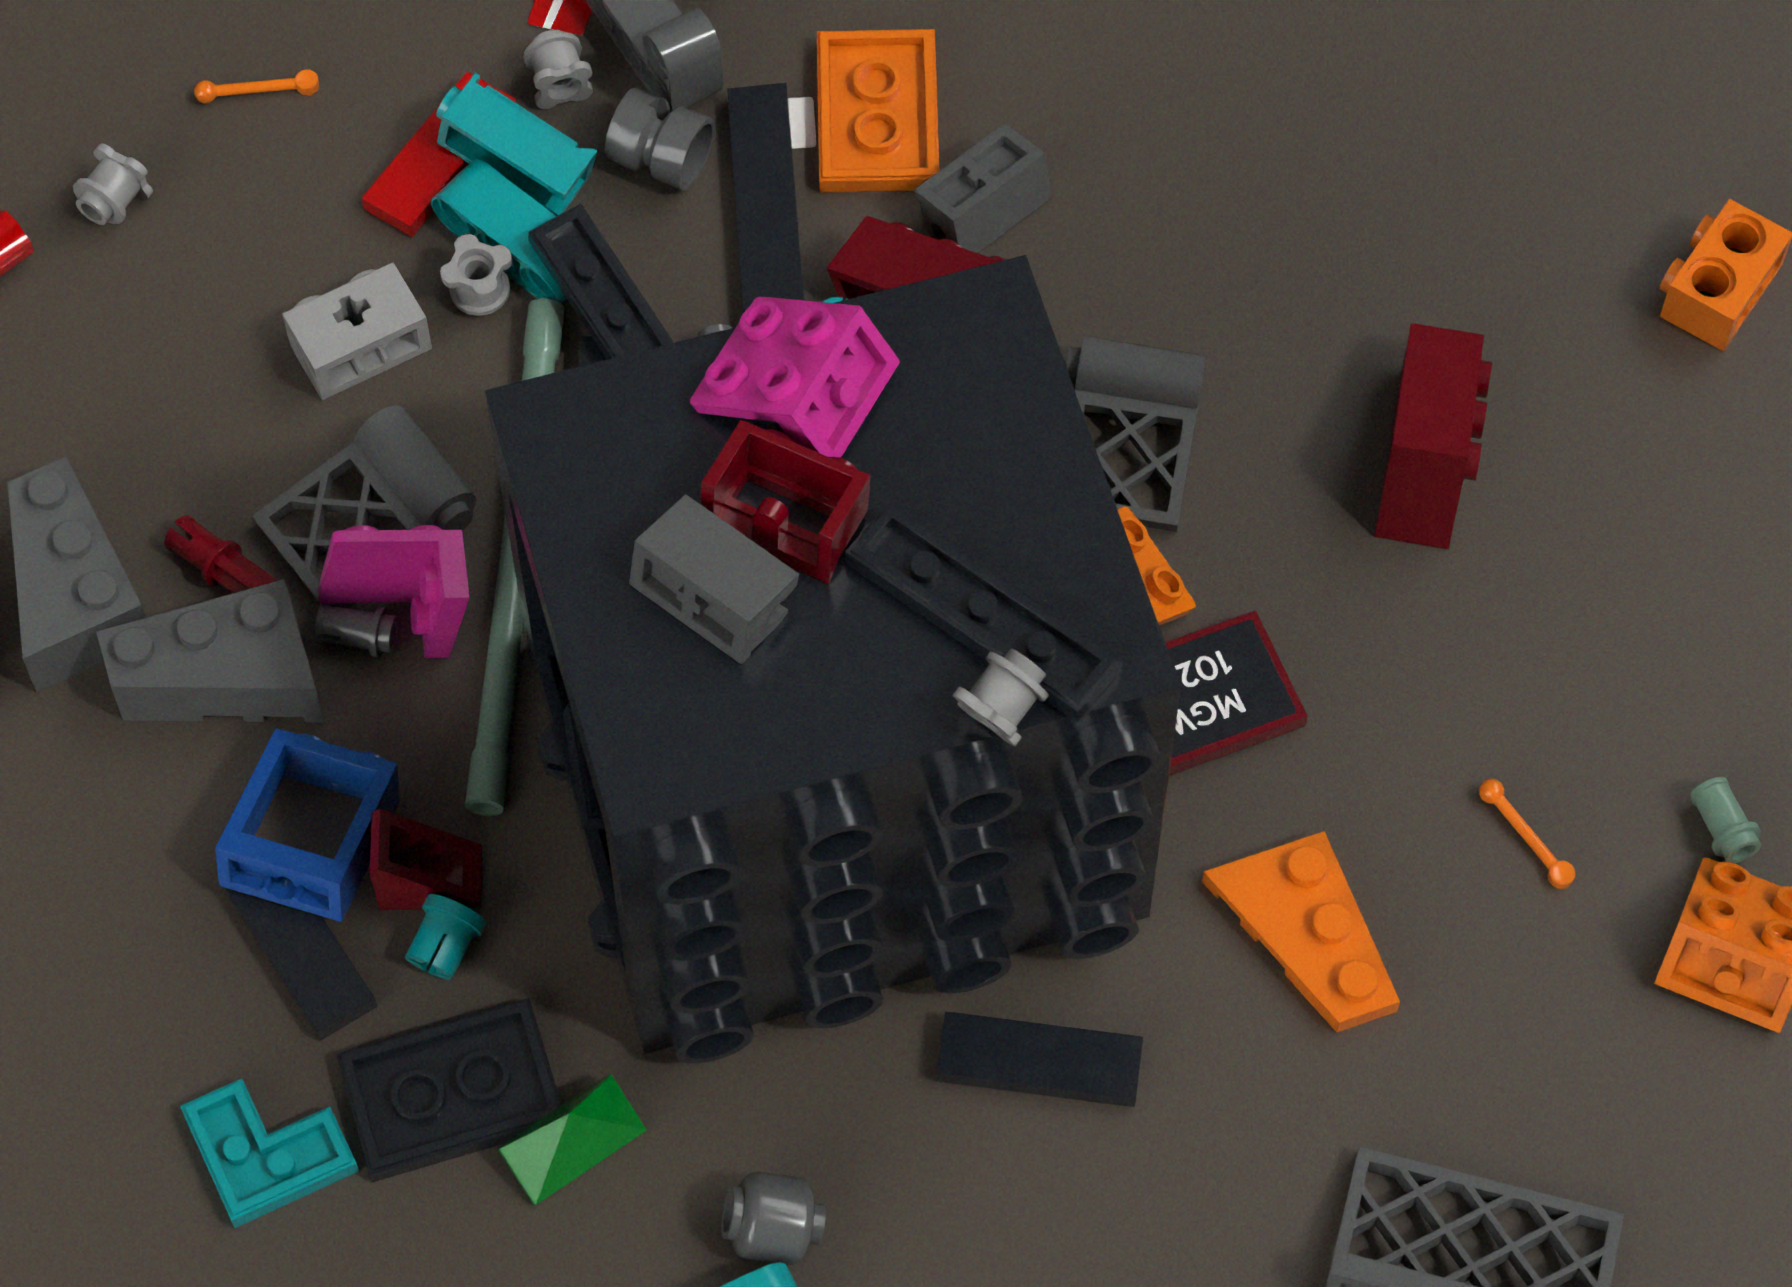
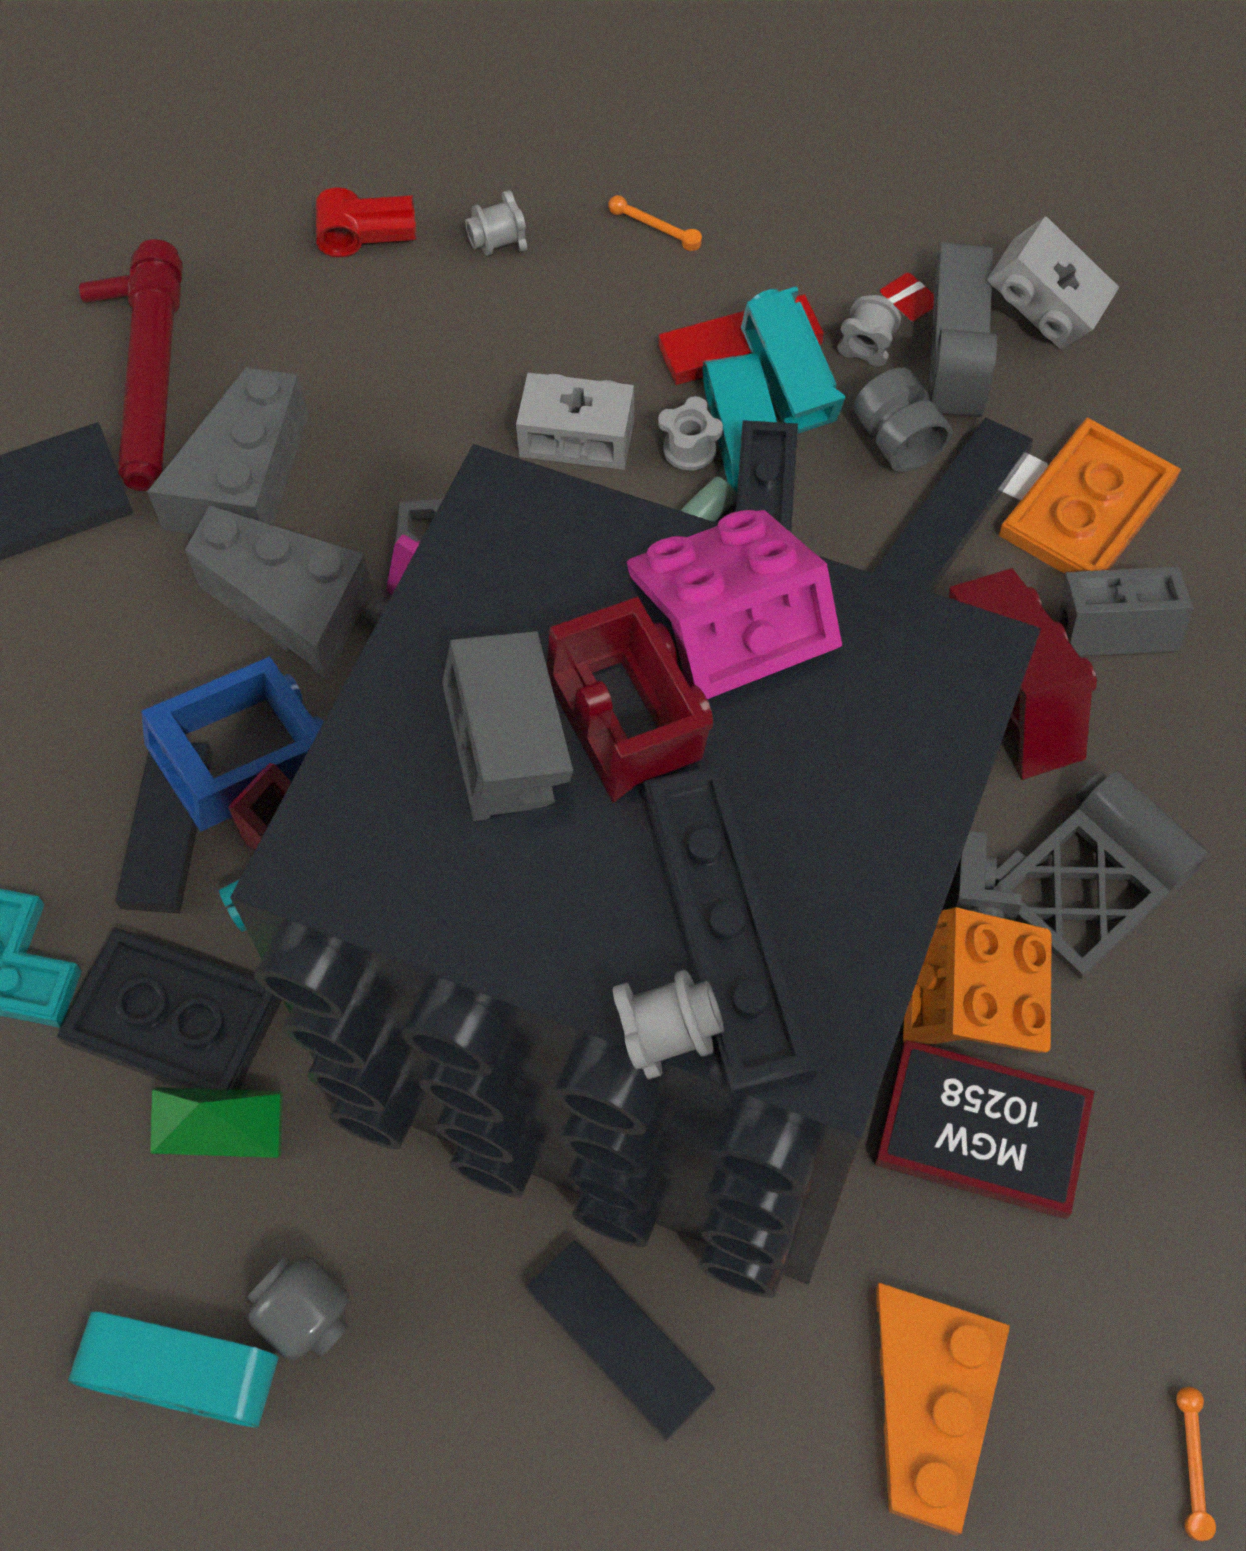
camera: 40 degrees right, 0 degrees up
(216, 559) = (348, 516): dark red axle -> none

